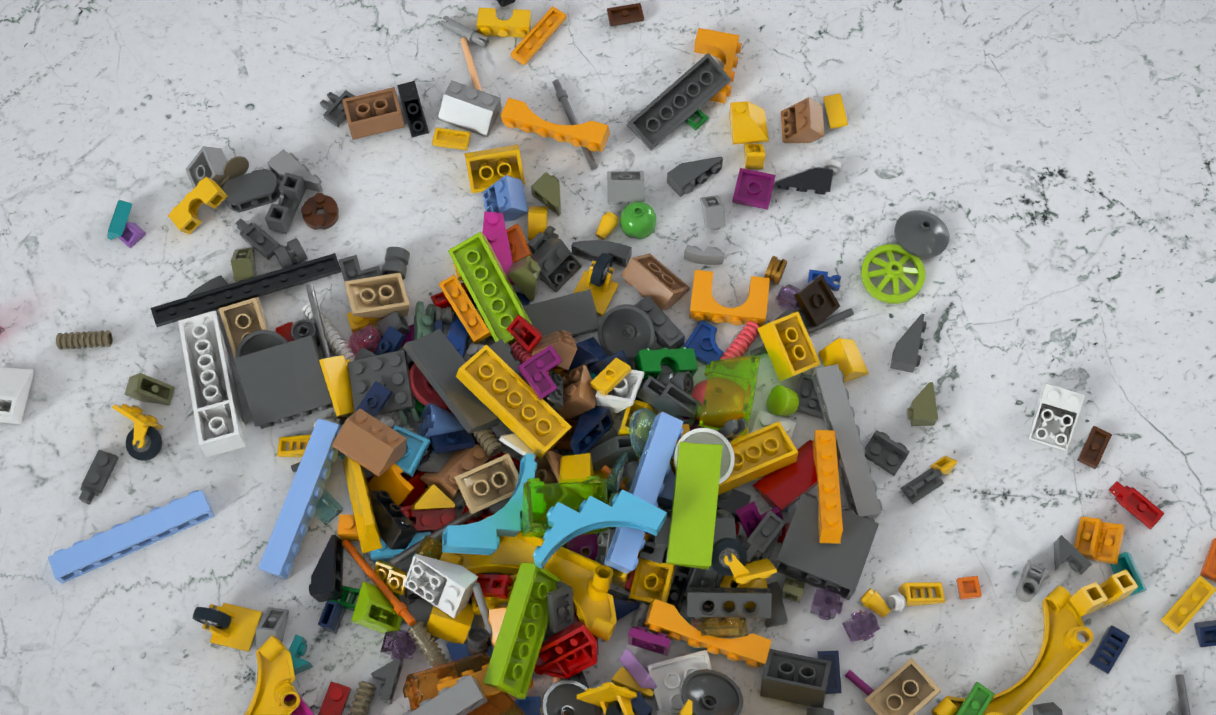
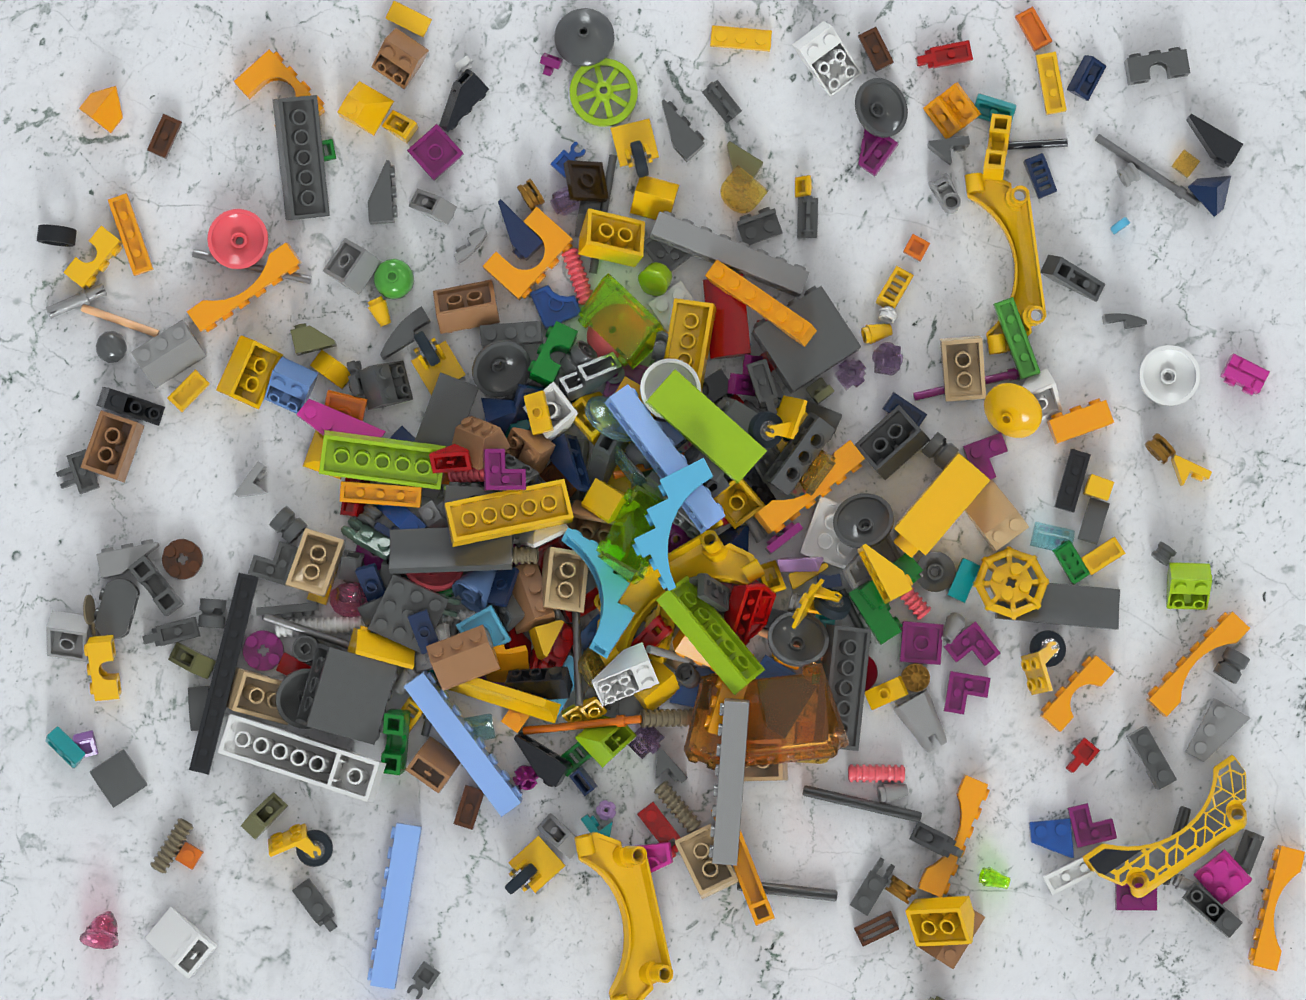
camera: 55 degrees left, 20 degrees up
(81, 599) = (424, 977): none -> dark grey plate
(84, 358) = (189, 855): none -> orange plate
(117, 271) = (118, 778): none -> dark grey slope
(250, 540) = (469, 807): none -> reddish brown plate
(259, 454) = (397, 730): none -> green arch
(268, 488) = (433, 764): none -> medium nougat slope
(284, 299) = (255, 659): none -> magenta plate
(304, 567) = (525, 777): none -> magenta gear
(318, 659) = (611, 810): none -> lavender plate
(329, 306) = (288, 610): none -> dark grey plate
(408, 219) = (248, 486): none -> light grey slope
(446, 71) = (111, 347): none -> dark grey hair
(526, 276) = (386, 420): olive slope -> none
(587, 91) = (230, 227): none -> coral dish
(608, 657) = (772, 576): none -> yellow slope
(737, 286) = (521, 236): none -> dark blue slope
(872, 320) = (635, 145): none -> yellow plate
(882, 223) = (550, 63): none -> magenta tile
(902, 418) = (742, 191): none -> clear yellow slope
(957, 360) = (721, 101): none -> dark grey hinge
(1015, 343) = (741, 38): none -> yellow plate
(1018, 501) = (875, 152): none -> magenta wing
(1062, 479) = (887, 103): none -> dark grey dish
(1131, 629) = (1038, 144): none -> black bar

